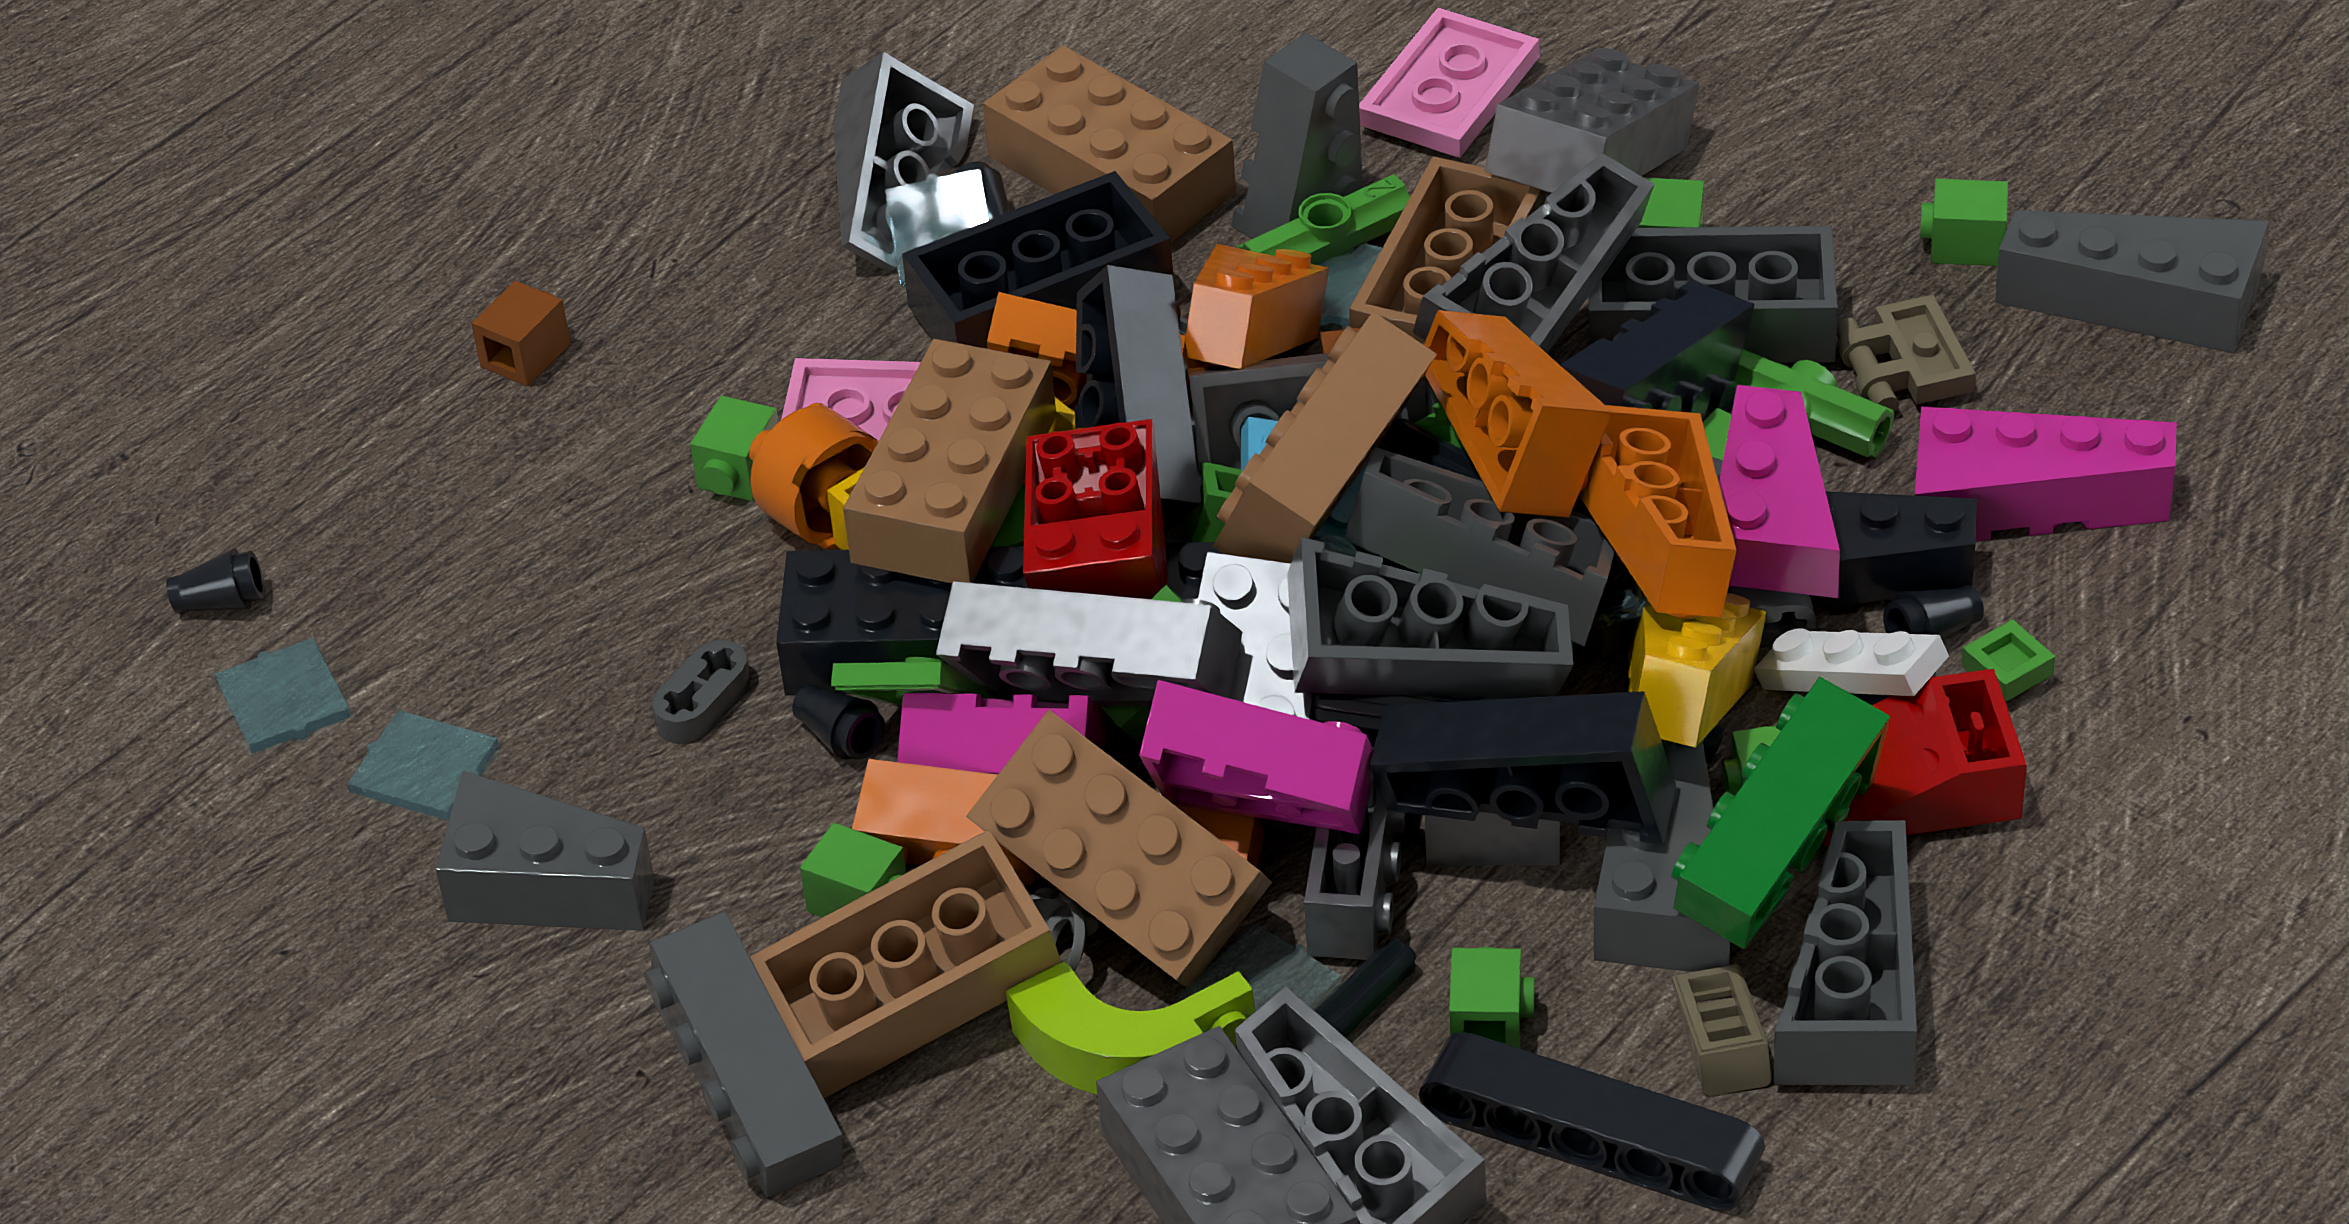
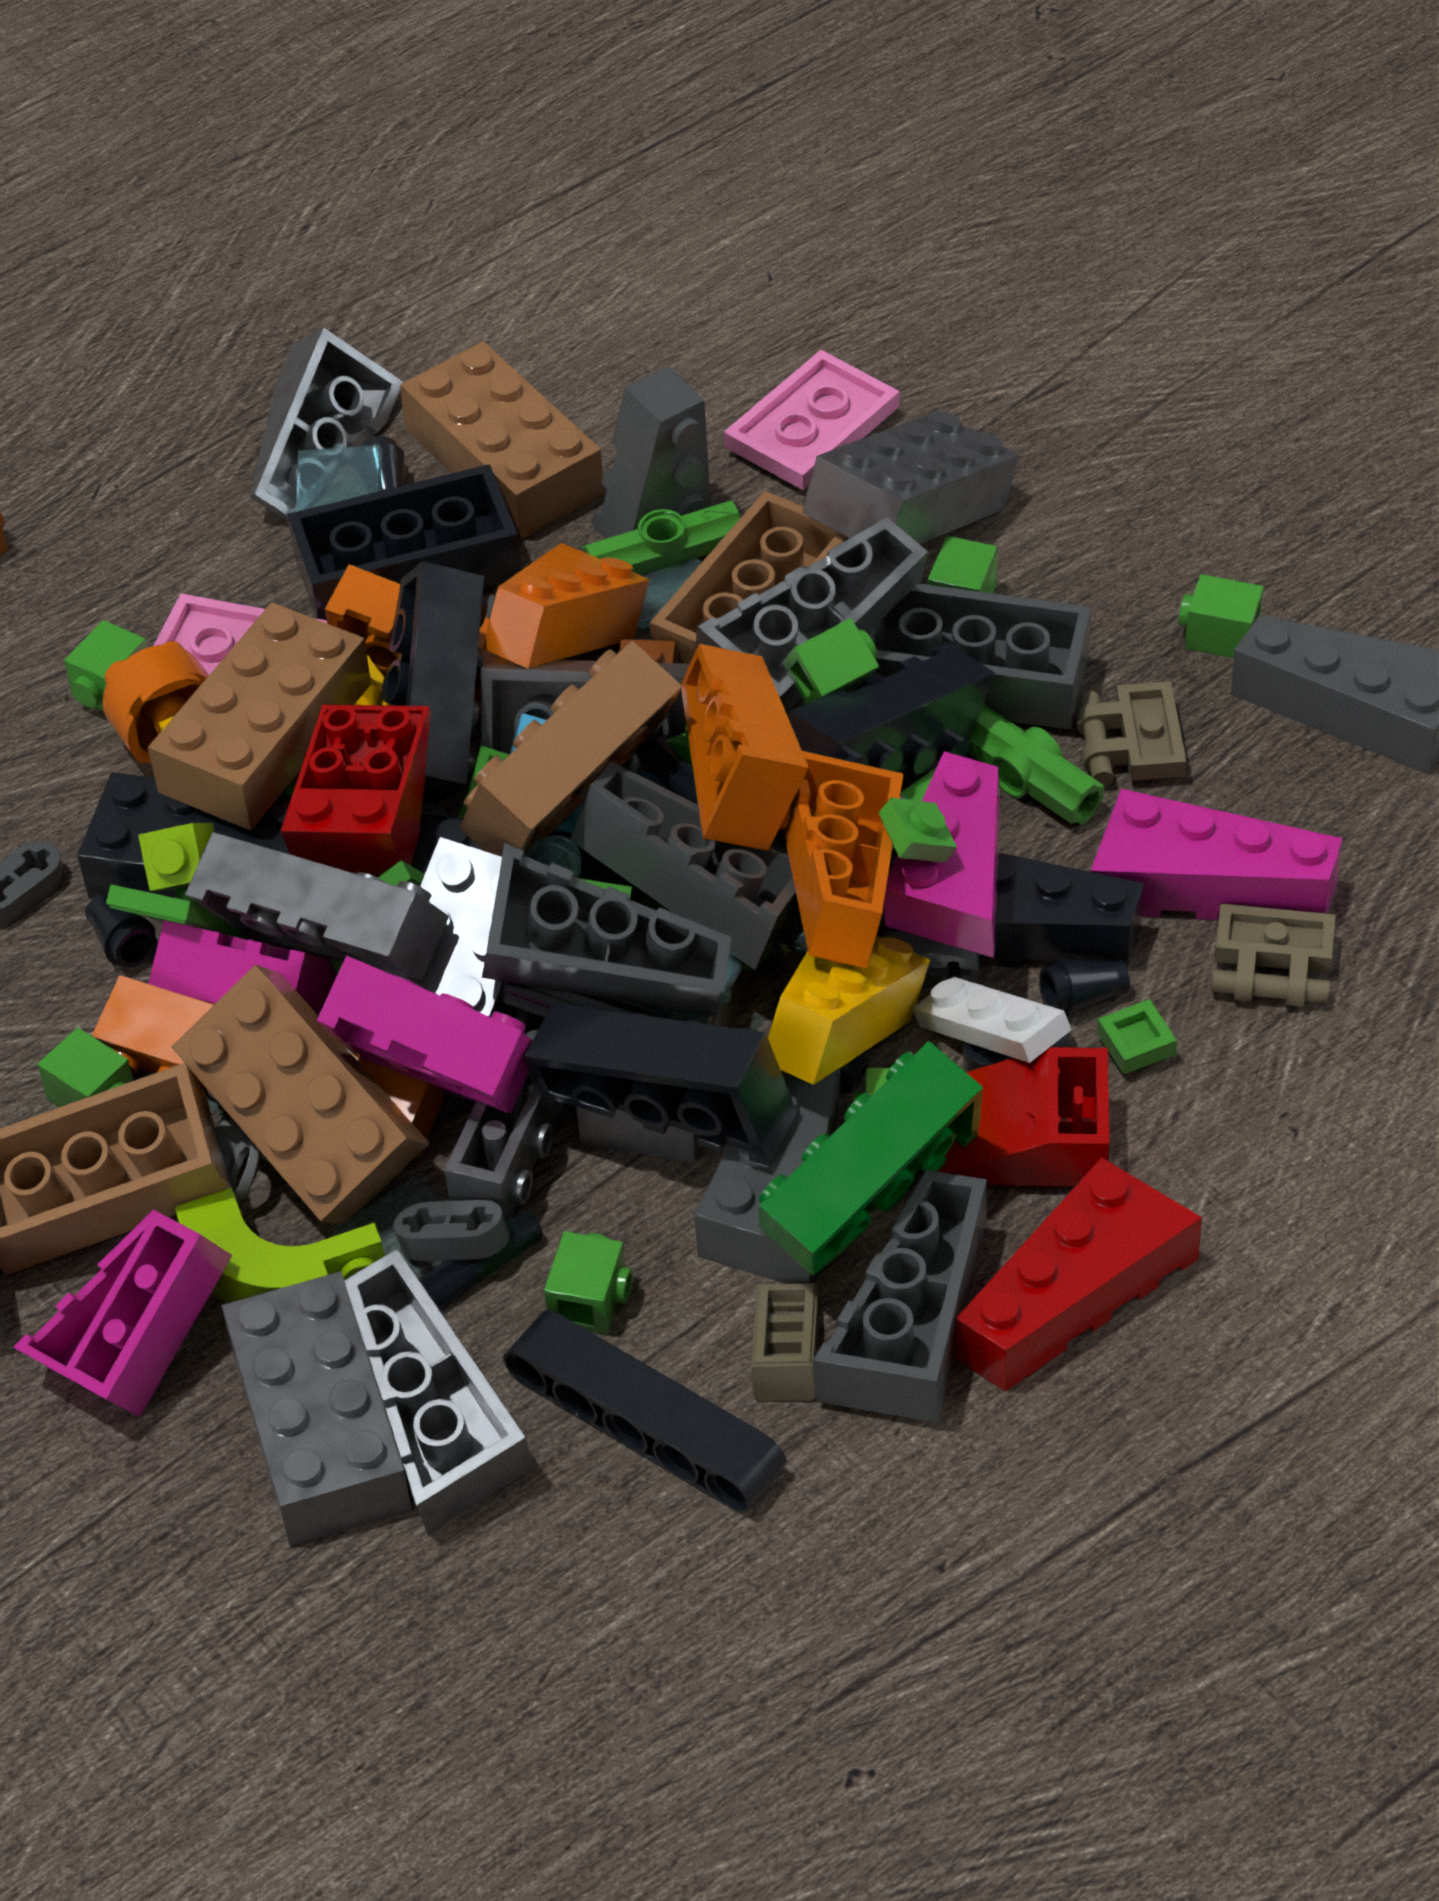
camera: 10 degrees right, 5 degrees up
(905, 620) = (174, 854): none -> lime brick
(996, 1108) = (132, 1313): none -> dark pink wedge
(1323, 967) = (451, 1230): none -> dark grey beam
(1582, 312) = (832, 661): none -> bright green brick
(1740, 464) = (917, 830): none -> bright green plate
(2023, 900) = (1078, 1267): none -> red wedge
(2129, 541) = (1273, 940): none -> dark tan plate

